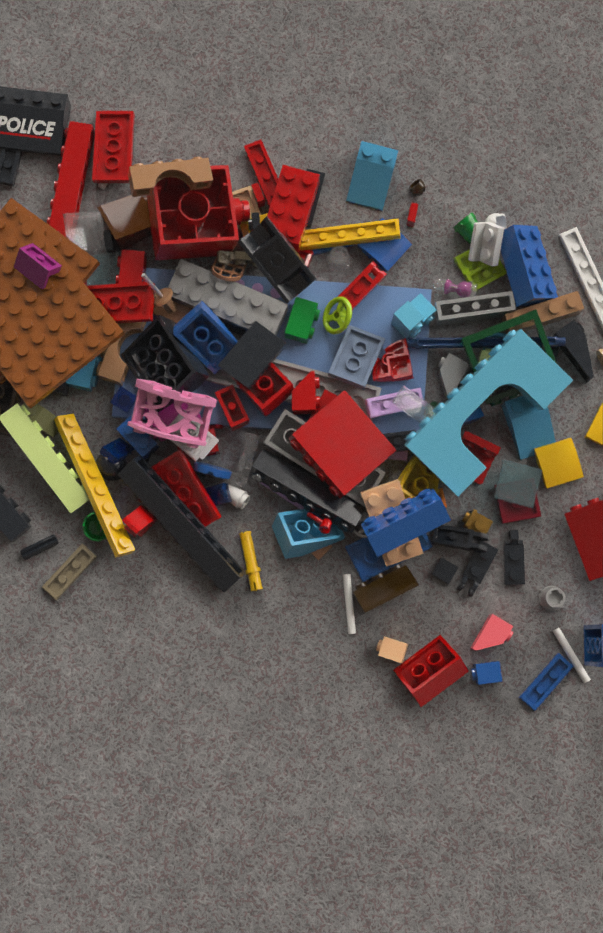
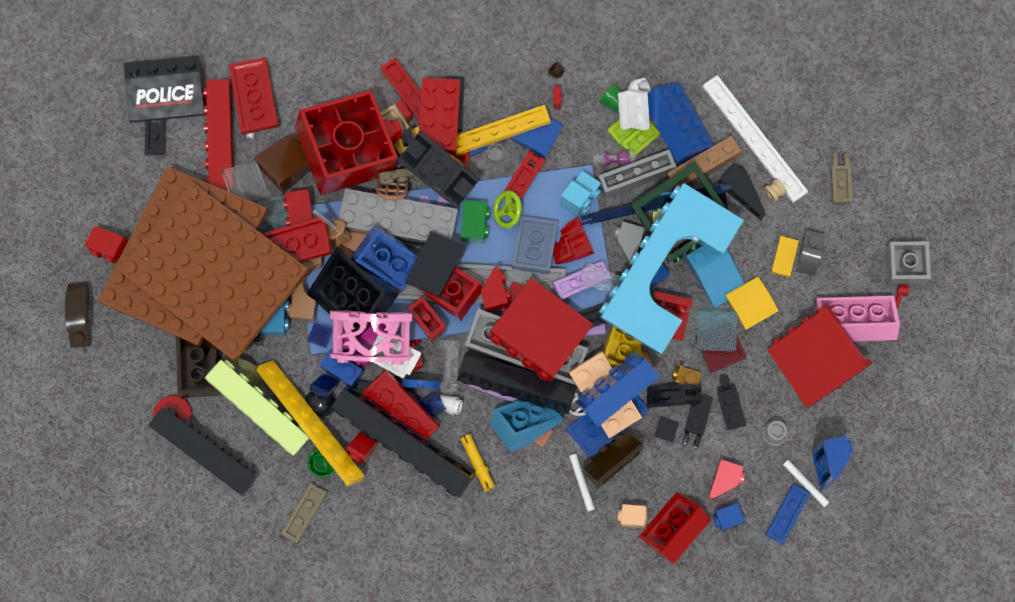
camera: 10 degrees left, 5 degrees down
(36, 265) = (209, 224): magenta panel -> none
(39, 547) = (269, 495): black axle -> none
(109, 241) = (270, 187): black tile -> none
(193, 172) = (342, 105): medium nougat arch -> none
(325, 524) = (541, 409): red hand -> none
(372, 175) = (509, 69): dark azure slope -> none

